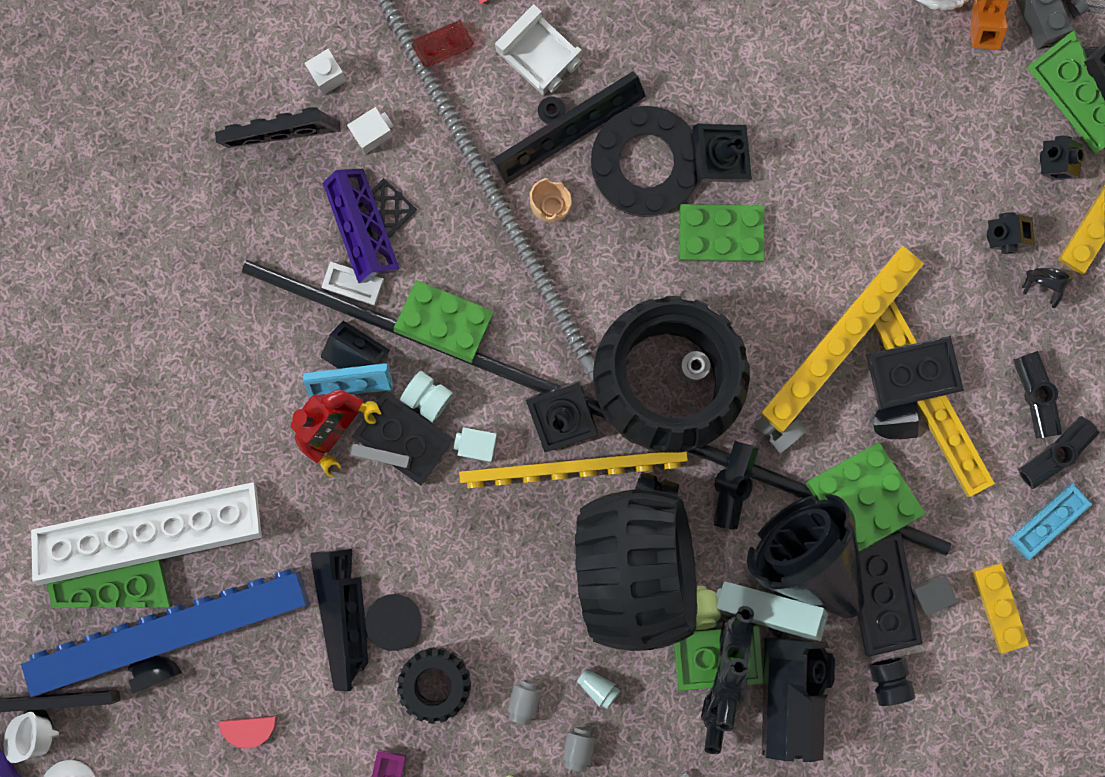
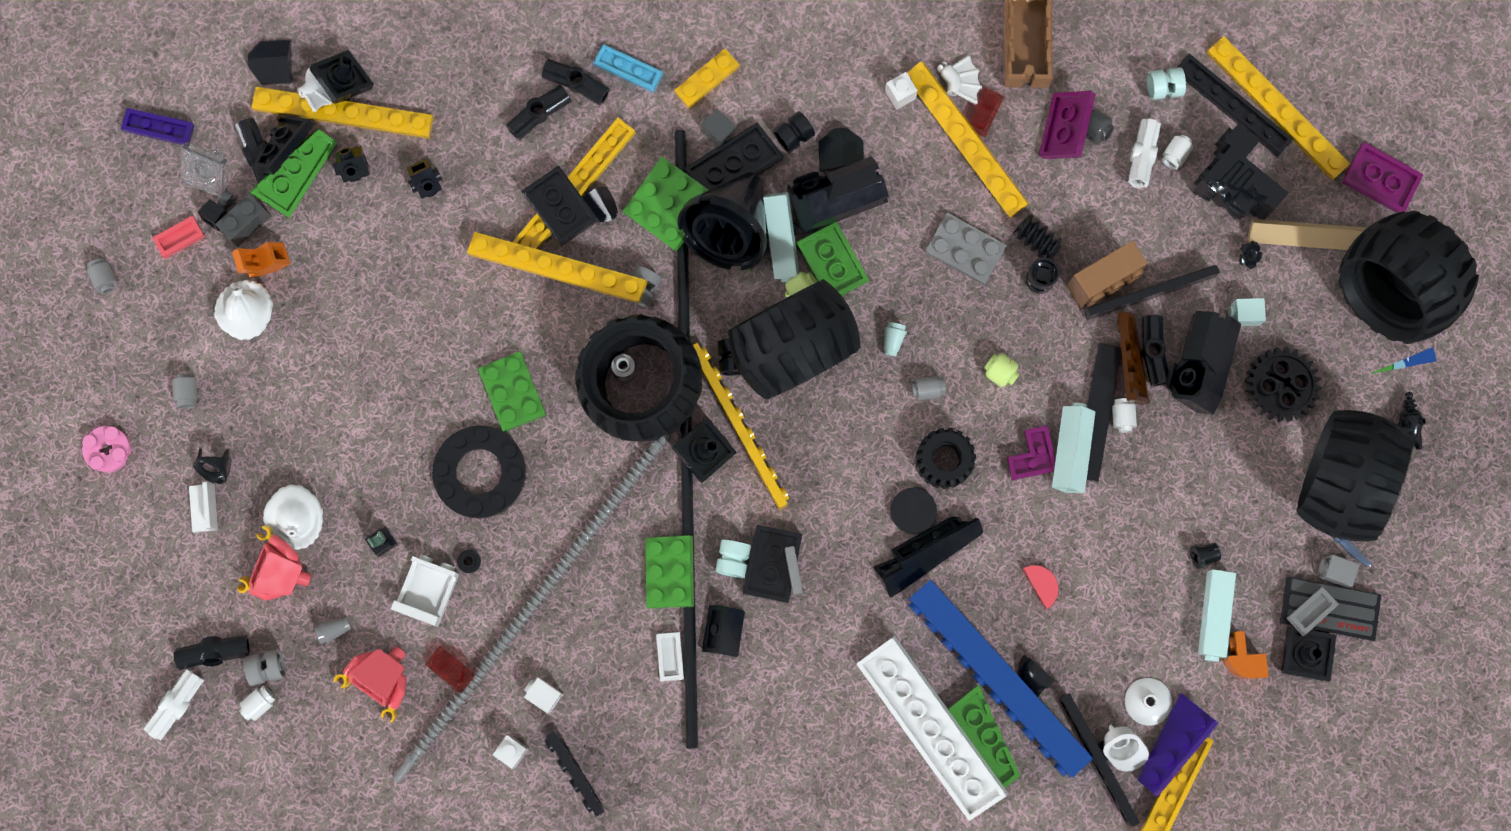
camera: 115 degrees left, 5 degrees down
(324, 421) = (786, 626): red torso -> none
(352, 380) = (747, 624): medium azure tile -> none
(354, 224) = (623, 673): dark purple fence -> none
(398, 196) = (585, 652): black window -> none
(476, 444) = (753, 506): light aqua brick -> none
(550, 200) = (541, 530): light nougat hair -> none
(569, 127) = (477, 541): black plate -> none
(578, 749) = (944, 333): light grey brick -> none
(614, 25) = (381, 541): none -> black piece
(722, 153) = (449, 415): black plate -> none
(730, 679) = (853, 241): black pin -> none
(734, 485) = (700, 301): black piece -> none
(848, 726) = (839, 149): none -> black slope
(1050, 278) = (447, 132): black piece -> none

